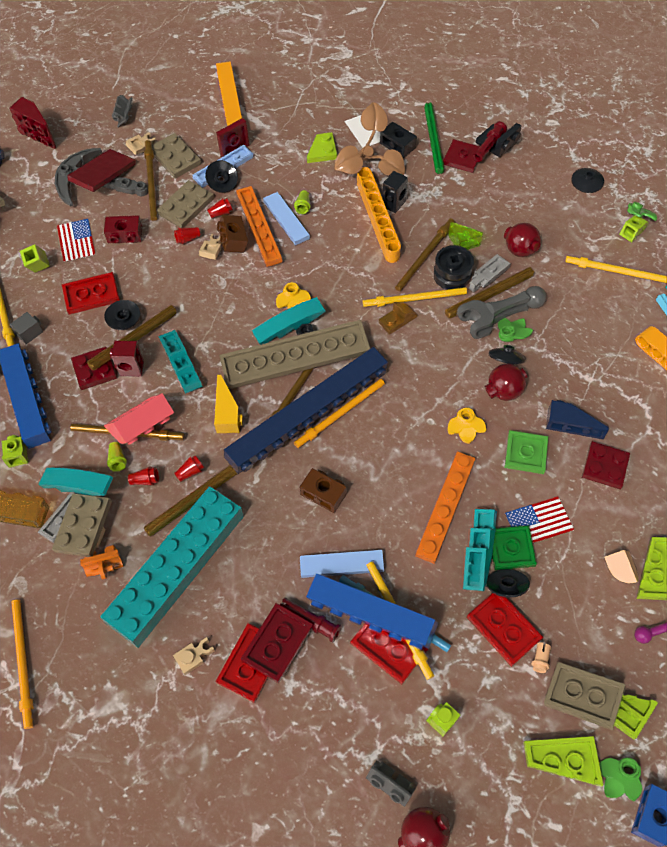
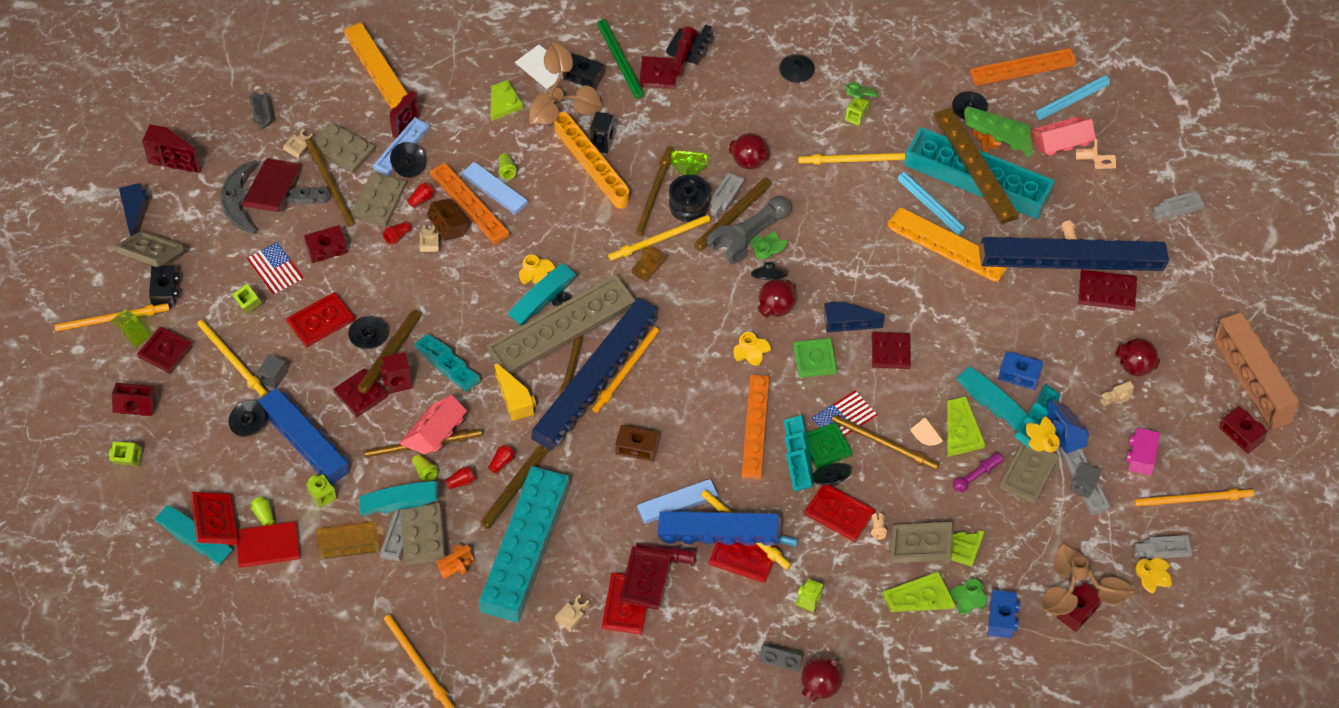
camera: 20 degrees left, 5 degrees down
(605, 591) = (919, 458): none -> pearl gold bar

